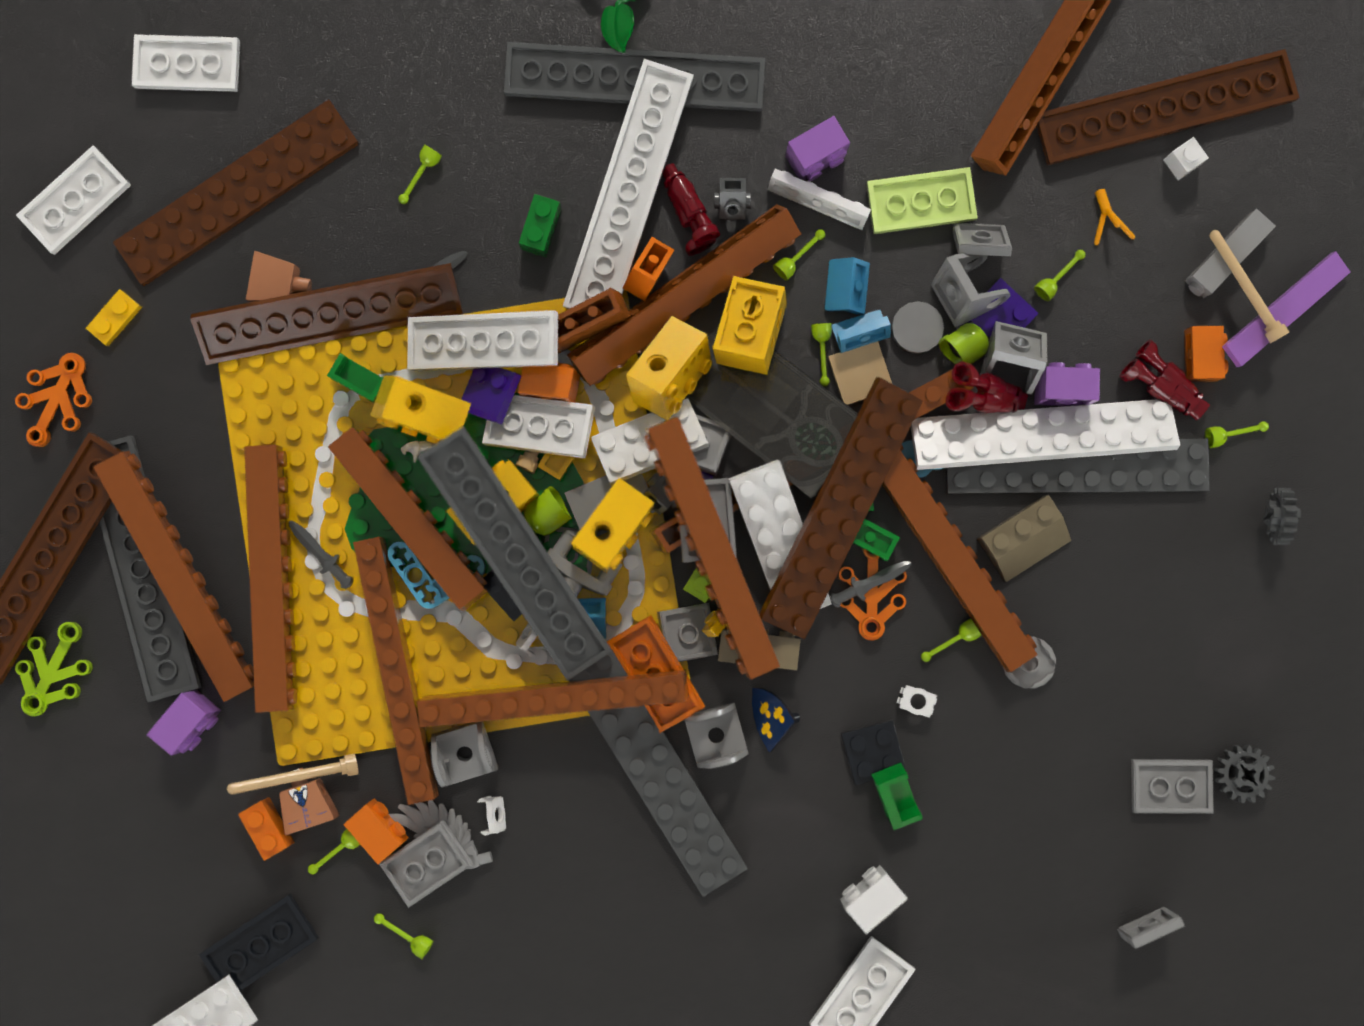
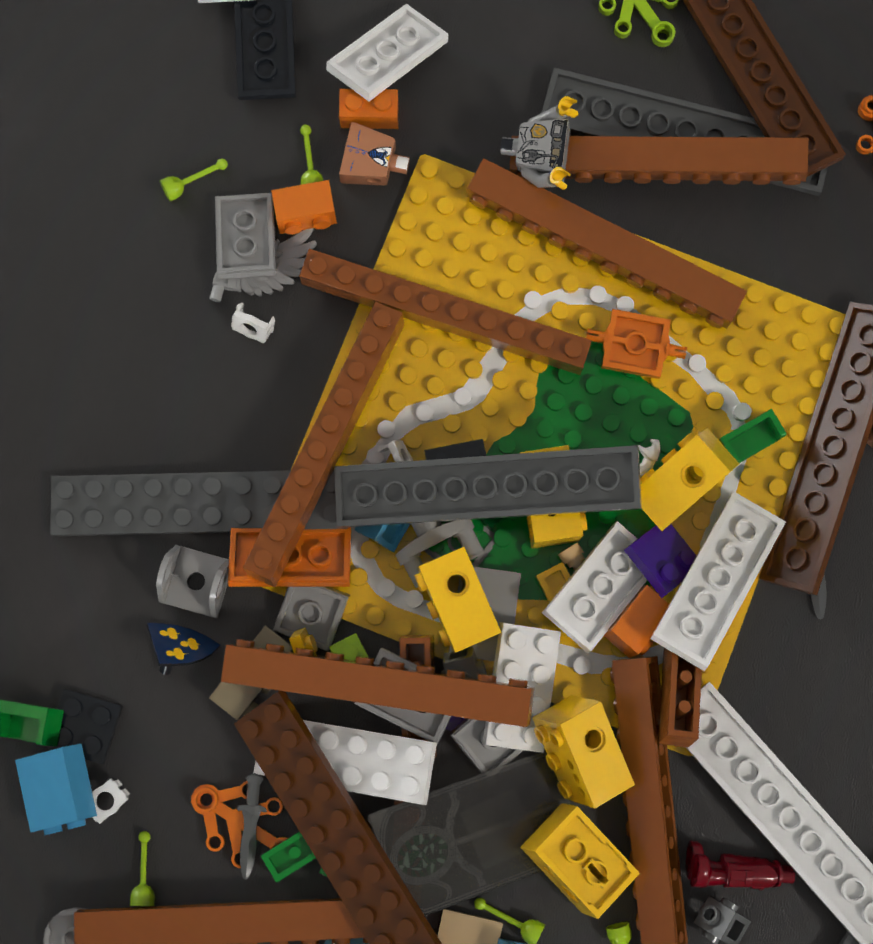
camera: 120 degrees right, 5 degrees down
(184, 723) = (513, 88): medium lavender brick -> none
(211, 841) = (387, 52): none -> white plate
(218, 670) = (543, 146): none -> torso
(327, 561) = (589, 307): dark grey sword -> none
(335, 508) = (636, 344): none -> orange plate
(347, 765) = (383, 215): tan piece -> none
(408, 519) = (584, 406): dark orange brick -> none
(440, 596) = (504, 396): medium azure beam -> none
(452, 768) = (325, 309): light grey hose -> none
(540, 225) = (805, 708): green brick -> none
(547, 512) = (511, 544): lime helmet -> none
(648, 268) = (698, 790): orange brick -> none
(931, 742) = (56, 789): none -> dark azure brick

